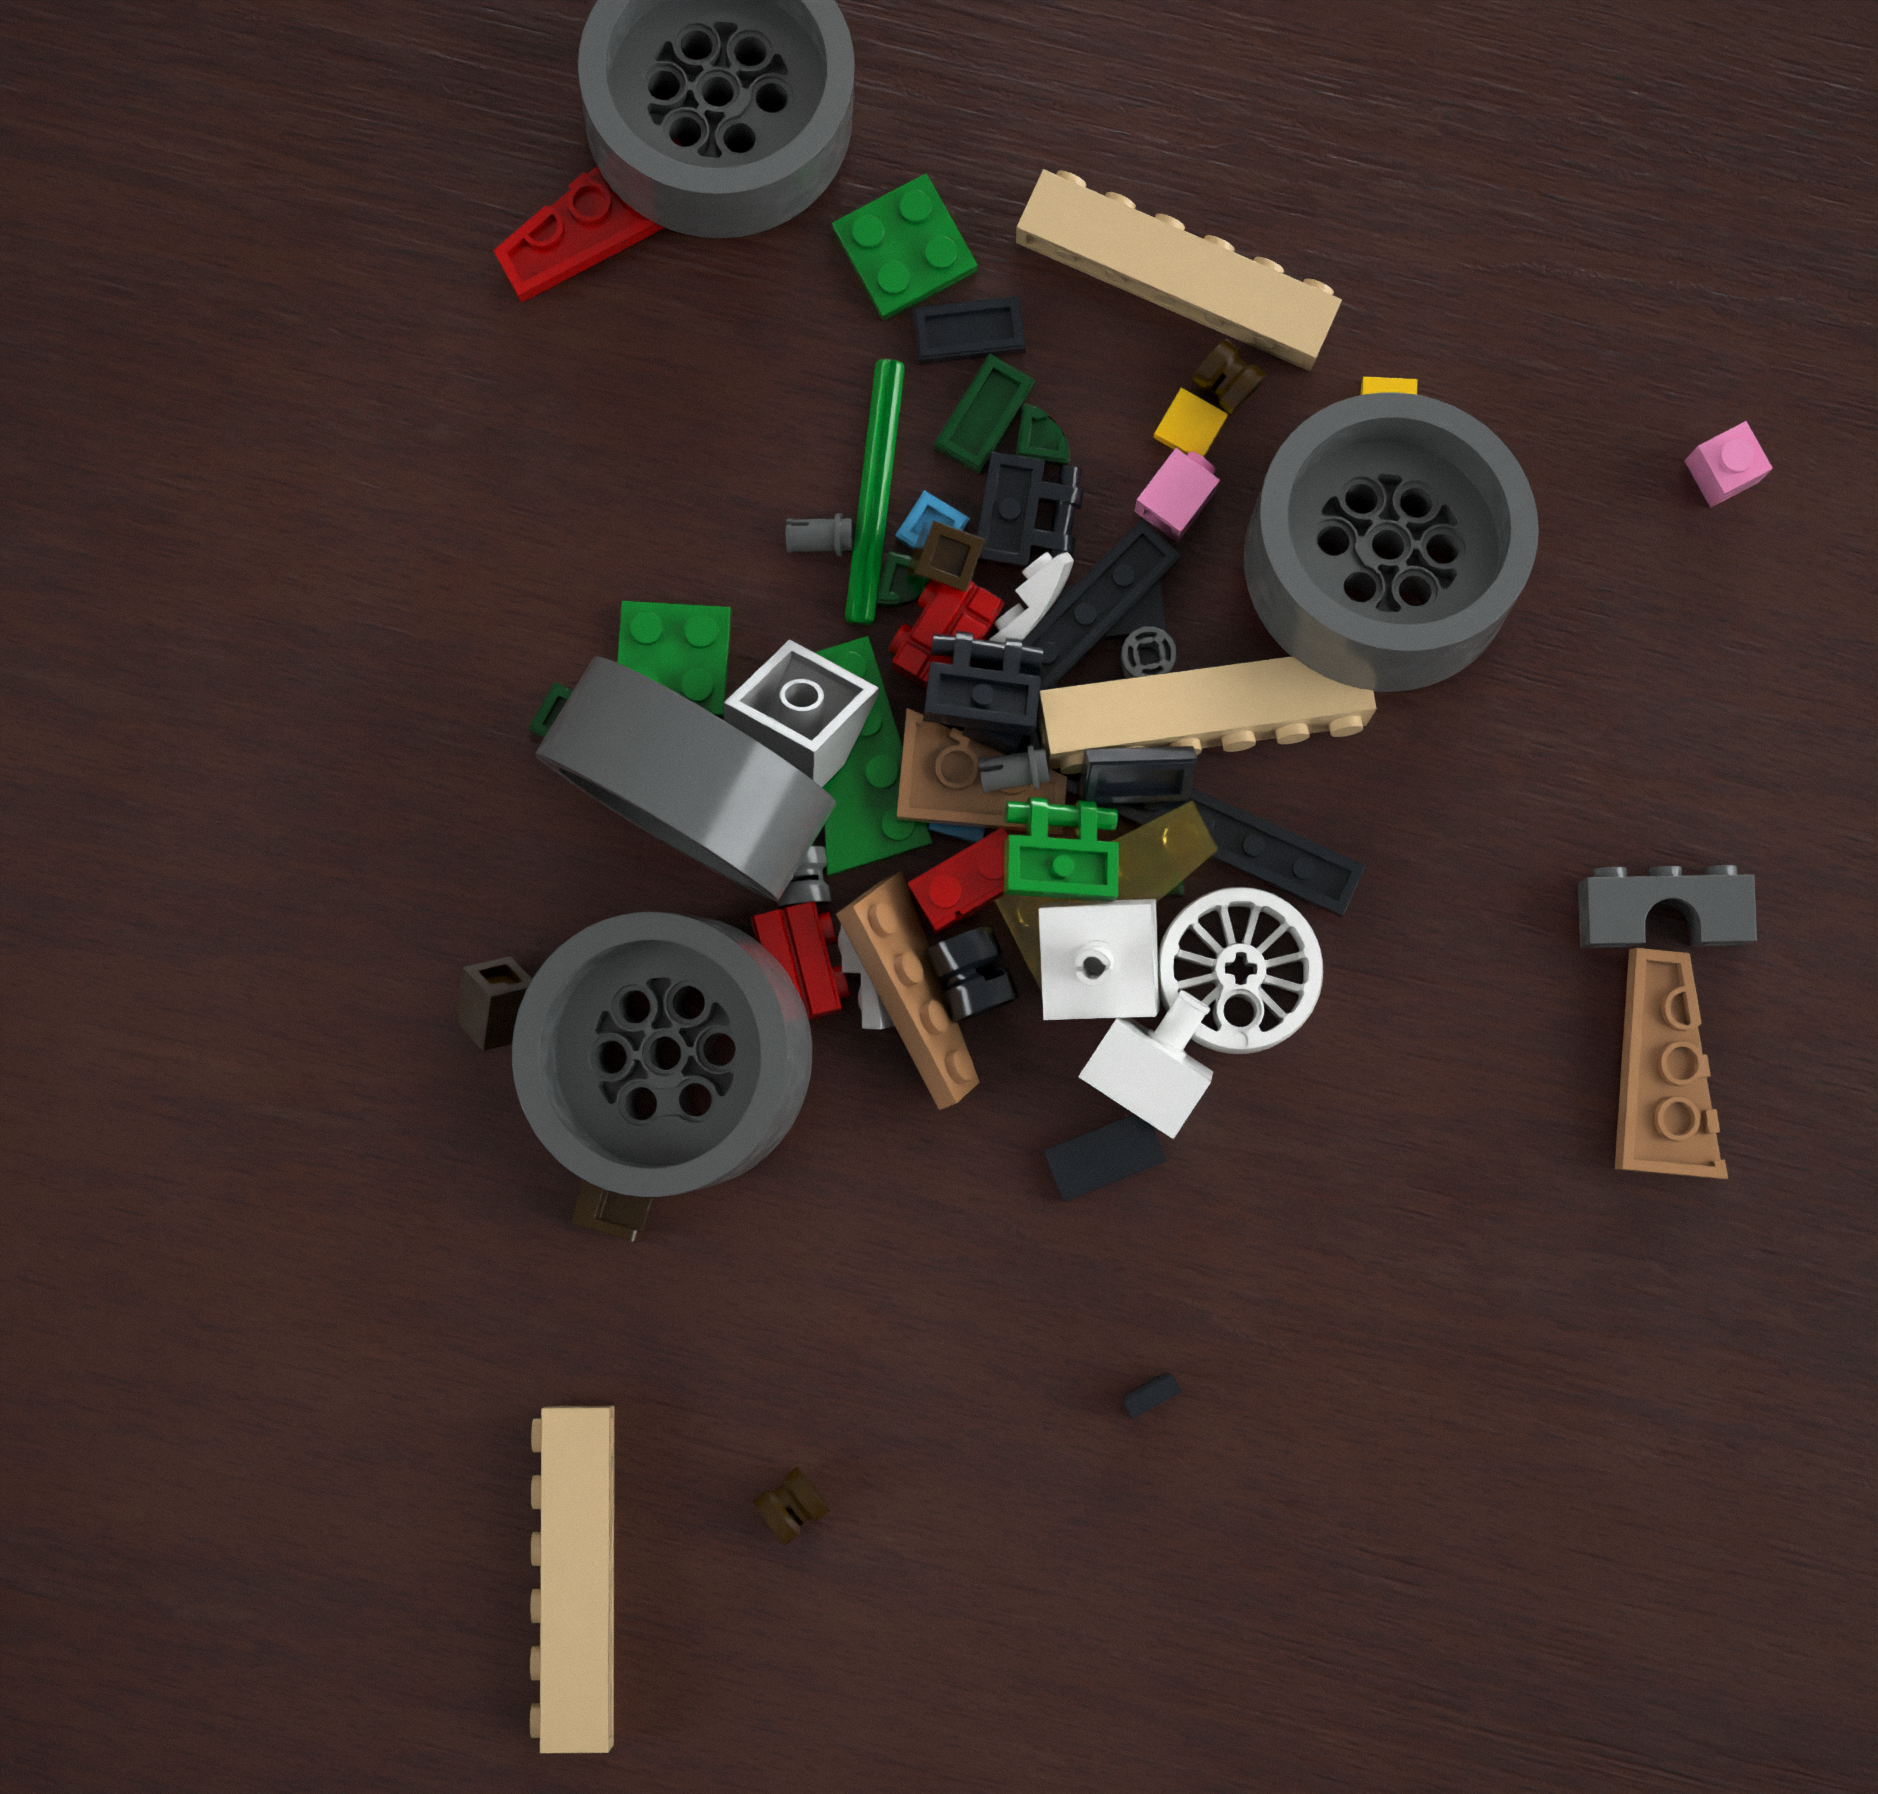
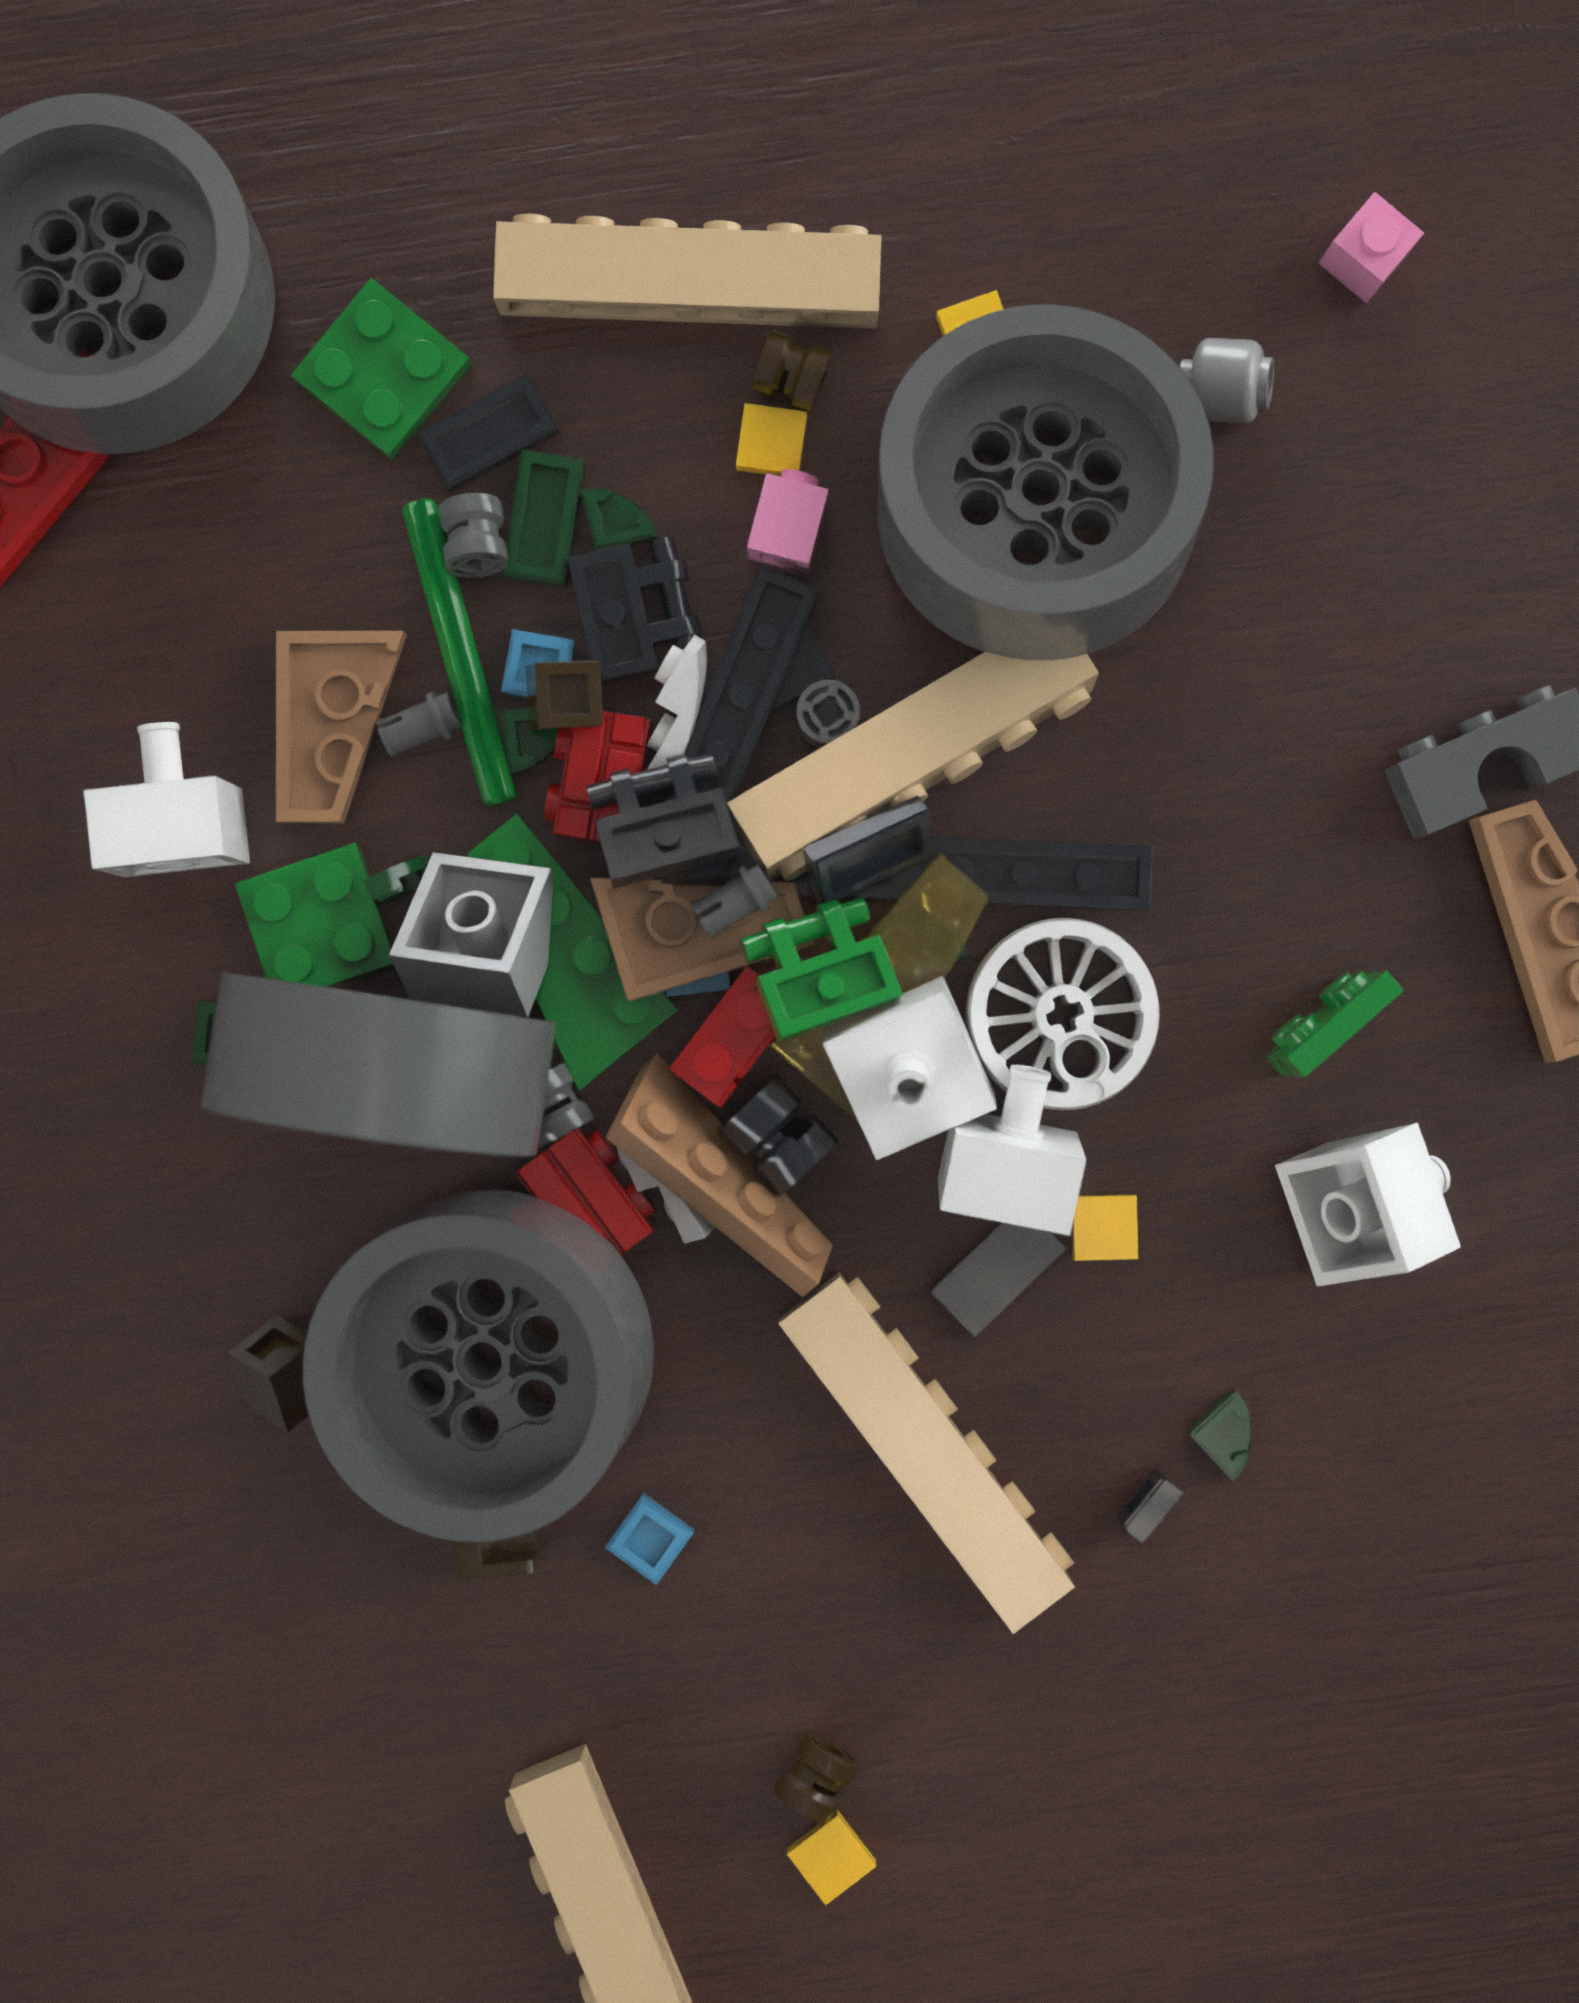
camera: 20 degrees left, 5 degrees up
(592, 528) = (167, 819): none -> white brick
(735, 1258) = (649, 1538): none -> dark azure tile
(749, 499) = (326, 717): none -> medium nougat wing
(751, 650) = (397, 880): none -> dark green tile
(776, 1578) = (831, 1857): none -> yellow tile
(924, 404) = (473, 535): none -> dark grey wheel
(988, 1276) = (927, 1452): none -> tan brick
(1204, 1157) = (1105, 1228): none -> yellow tile
(1235, 1365) = (1225, 1434): none -> dark green tile
(1425, 1218) = (1369, 1205): none -> white brick
(1470, 1052) = (1347, 1007): none -> green plate
(1574, 523) = (1230, 379): none -> light grey head

